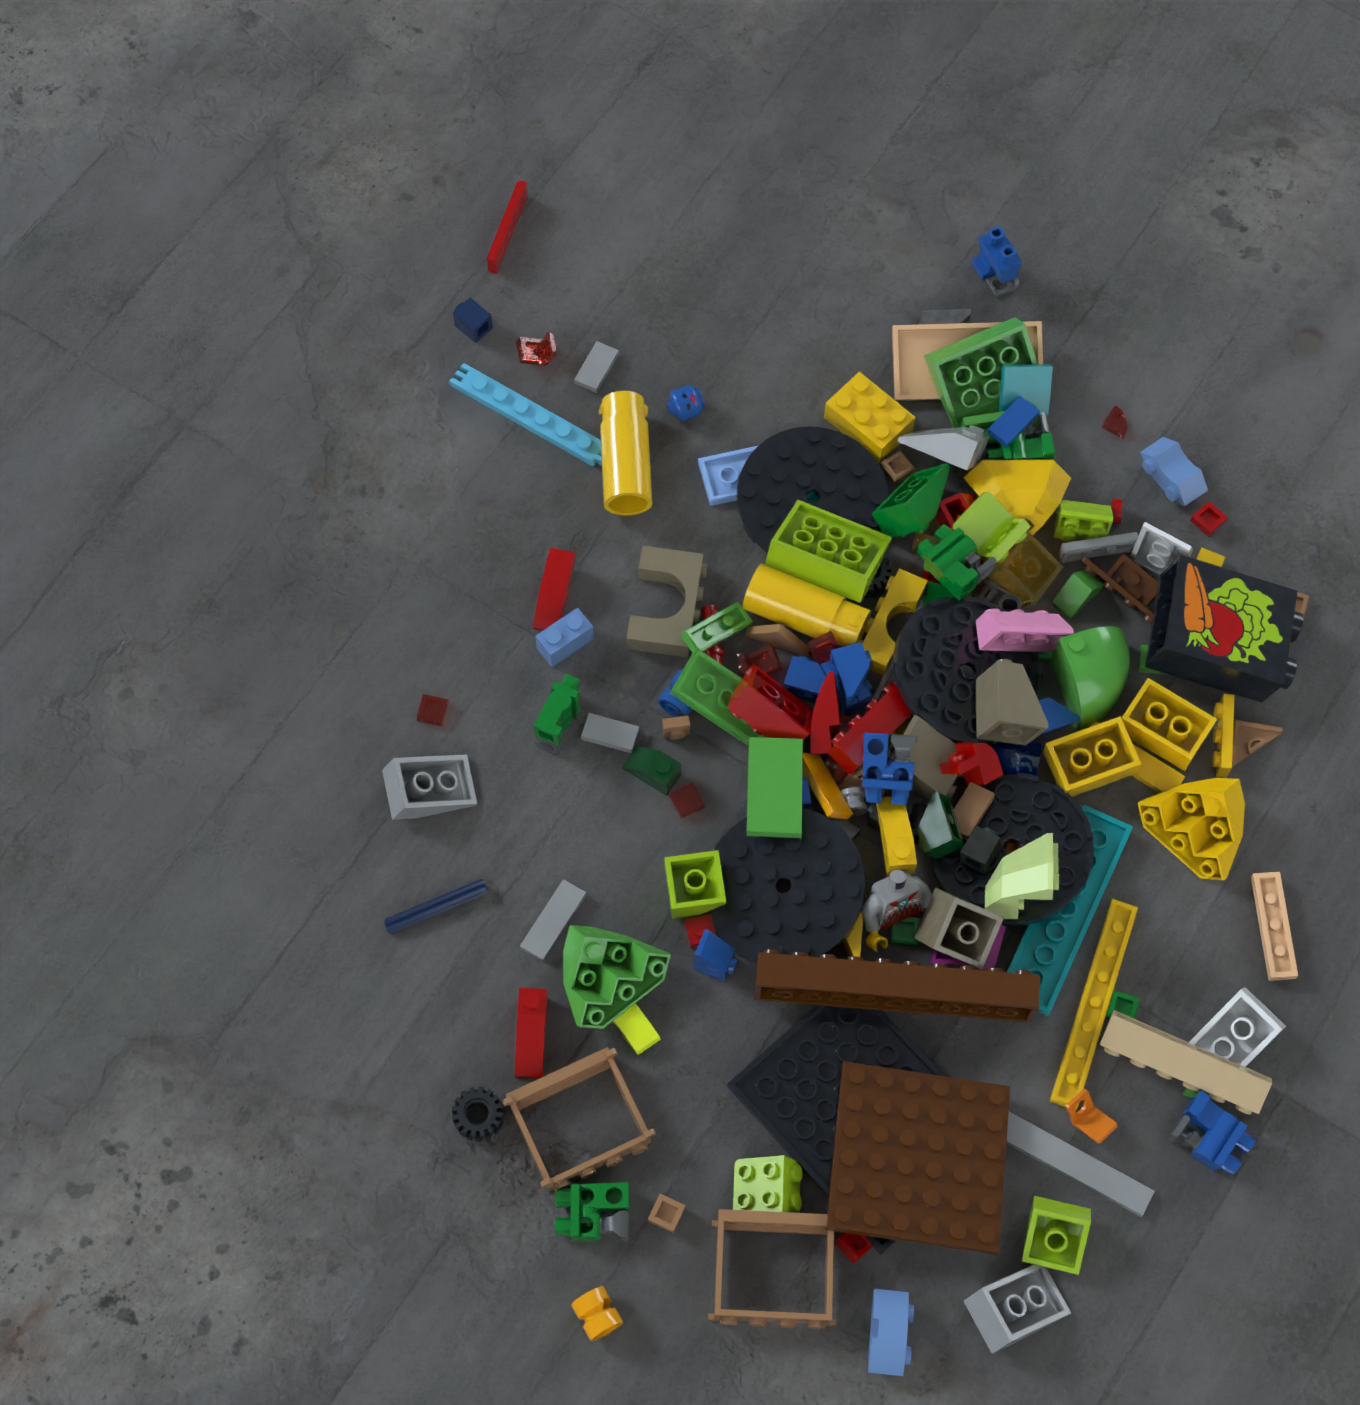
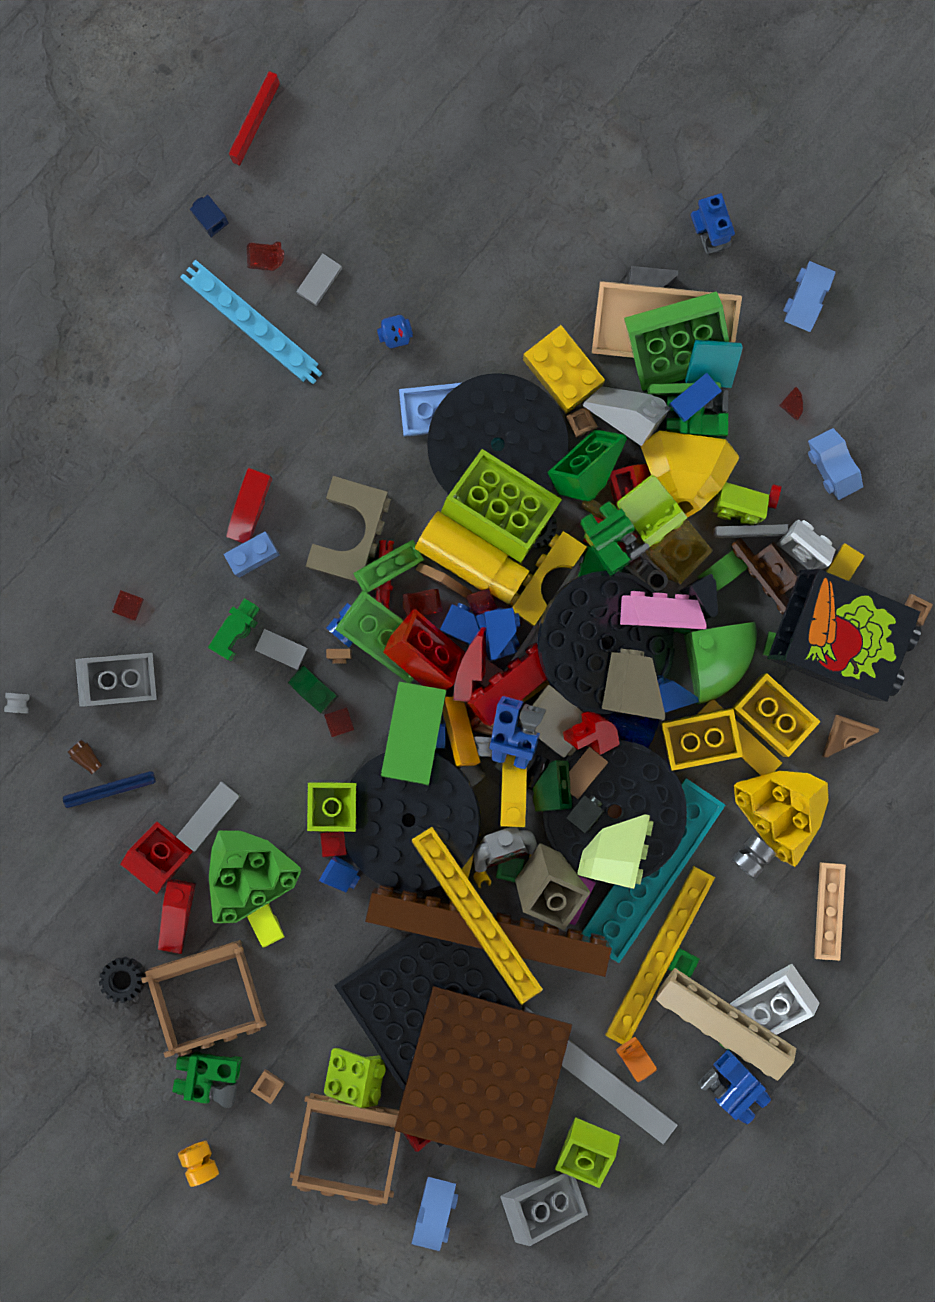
camera: 15 degrees right, 20 degrees up
(320, 825) = (16, 703): none -> light grey wheel
(404, 873) = (84, 756): none -> reddish brown cone
(499, 971) = (156, 857): none -> red slope
(625, 454) = (331, 378): yellow piece -> none
(882, 959) = (477, 916): none -> yellow tile
(1064, 602) = (705, 591): none -> black tile
(1110, 318) = (808, 298): none -> medium blue brick
(1177, 875) = (753, 856): none -> flat silver wheel
(1208, 518) = (857, 515): red plate -> none
(1223, 735) = (824, 730): yellow plate -> none

